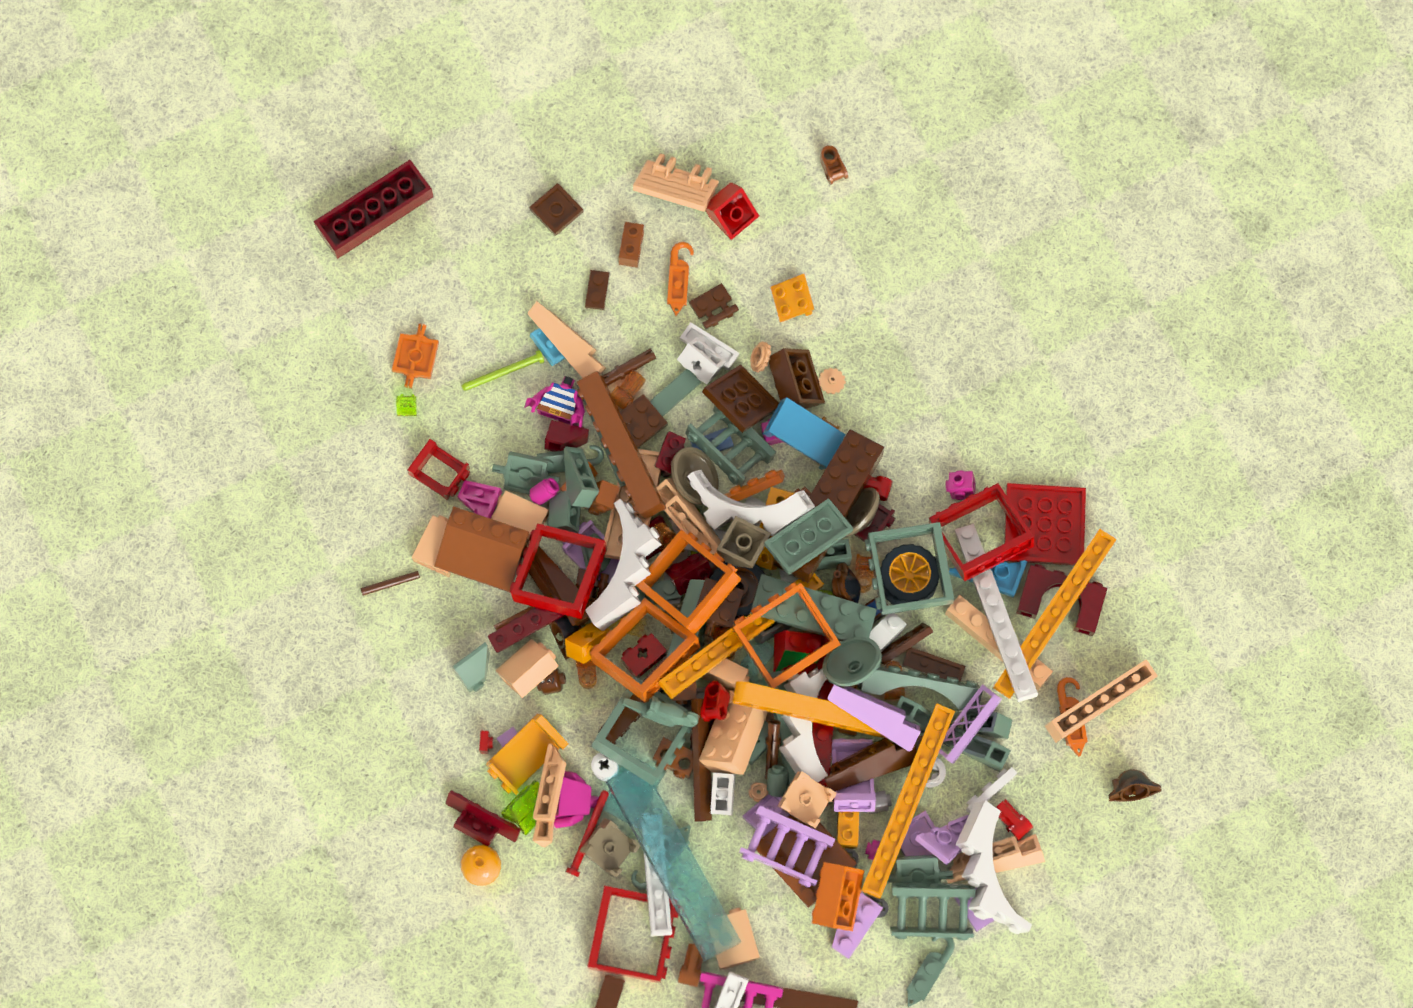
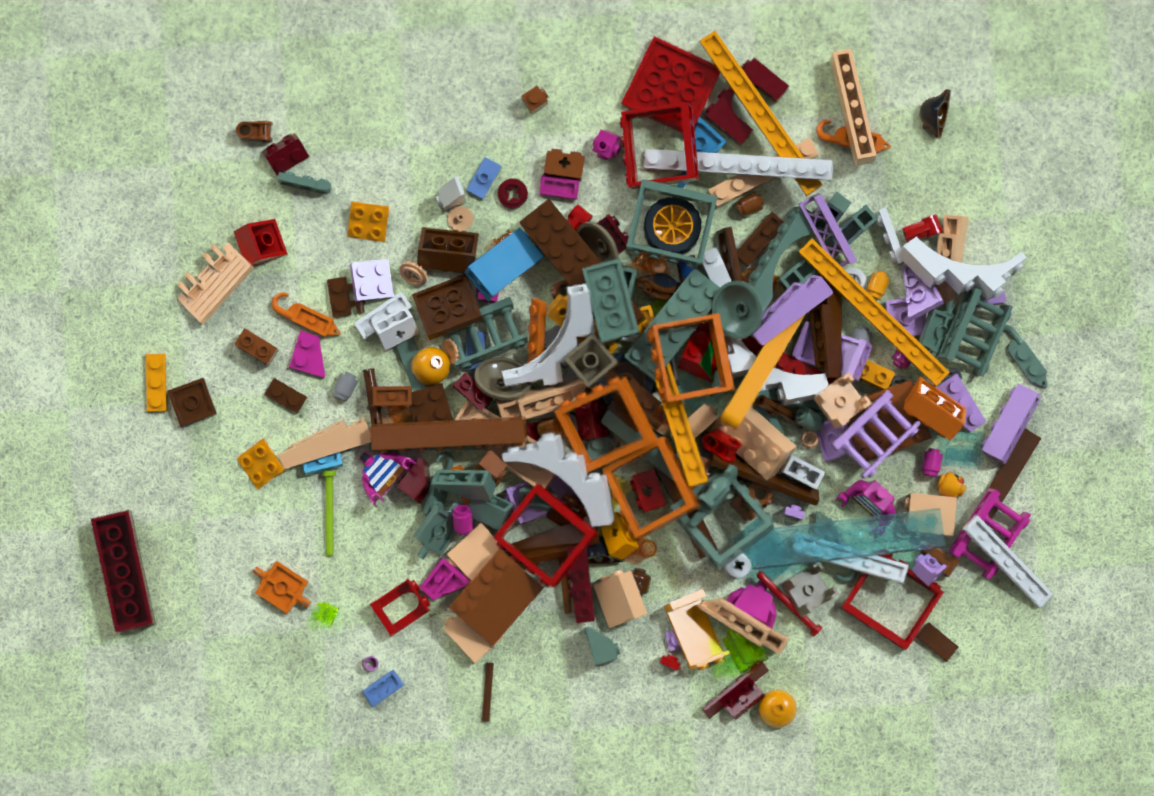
camera: 70 degrees left, 10 degrees up
(355, 484) = (383, 688): none -> medium blue plate
(378, 460) = (372, 667): none -> magenta hinge
(524, 292) = (260, 464): none -> light orange hinge
(561, 171) = (156, 382): none -> light orange plate
(628, 338) = (345, 386): none -> light grey brick
(635, 380) = (392, 396): none -> dark orange plate
(643, 294) = (308, 355): none -> dark pink wing
(676, 955) = (927, 568): none -> lavender brick
(679, 407) = (430, 366): none -> light orange cylinder
(680, 804) = (794, 512): none -> lavender plate
(701, 418) = (451, 350): none -> light nougat piece
(725, 871) = (870, 497): none -> dark pink torso
(738, 322) = (371, 280): none -> plate
(770, 948) = (951, 485): none -> light orange head
(784, 920) = (931, 462): none -> dark pink brick
(804, 228) = (306, 182): none -> sand green hinge
(806, 948) = (963, 454): none -> clear light blue plate
(823, 200) = (285, 153): none -> dark red bracket
(850, 360) = (451, 194): none -> white slope
(856, 983) = (1011, 423): none -> lavender brick
(879, 387) = (484, 178): none -> medium blue plate
(884, 414) = (511, 184): none -> dark red gear
(901, 458) = (559, 187): none -> dark pink plate
(922, 464) = (572, 171): none -> dark orange brick
(937, 797) = (878, 284): none -> light orange brick
(963, 643) = (750, 204): none -> dark orange brick
(974, 402) = (535, 99): none -> dark orange brick

